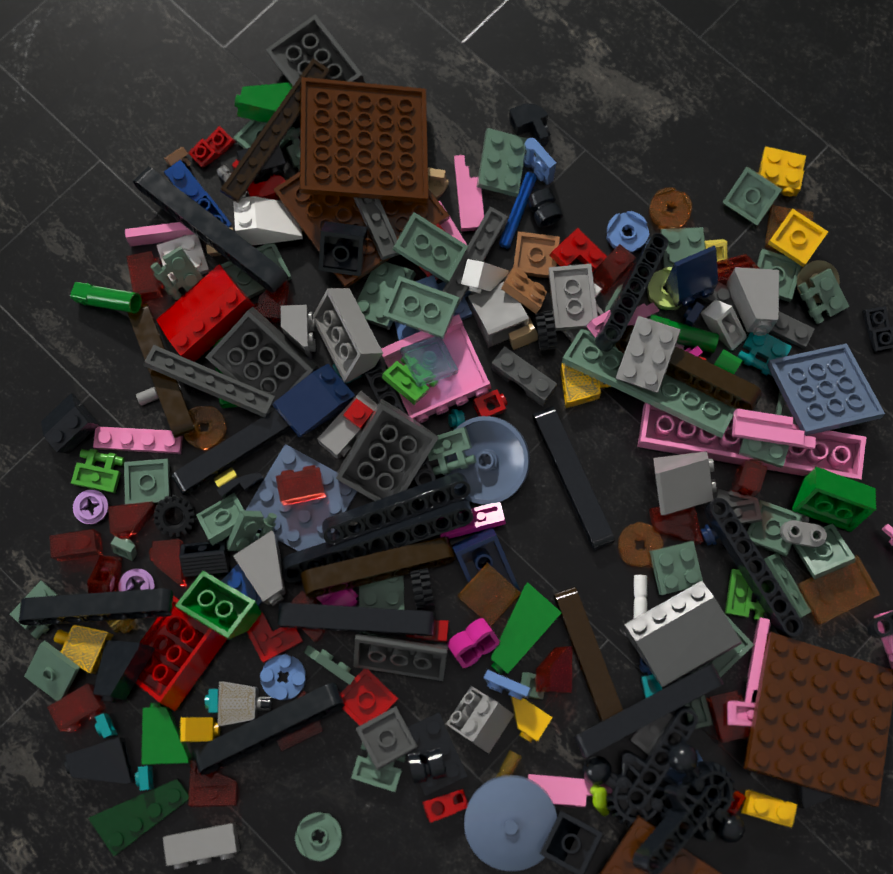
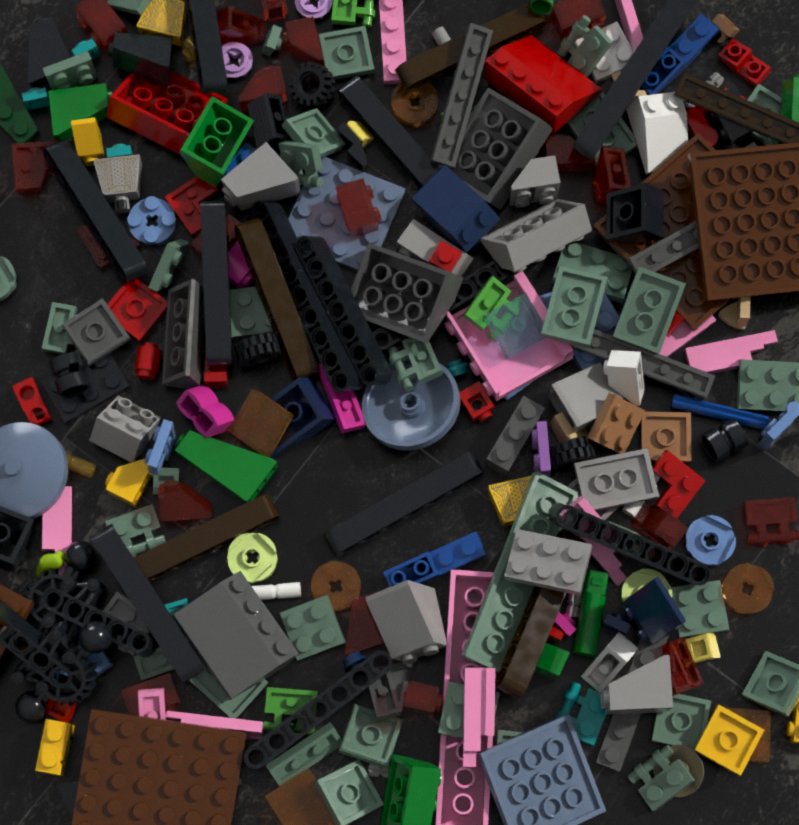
camera: 80 degrees right, 0 degrees up
(126, 733) = (71, 72): none -> sand green plate
(301, 266) = (610, 173): none -> clear red slope
(418, 692) = (148, 361): none -> red brick
(542, 353) = (539, 442): none -> medium lavender plate
(568, 716) = (136, 524): none -> sand green plate
(608, 182) = (771, 512): none -> clear red plate
(613, 602) = (252, 543): none -> yellowish green plate
(628, 457) = (438, 562): none -> blue slope
(804, 534) = (365, 766): light grey plate -> none

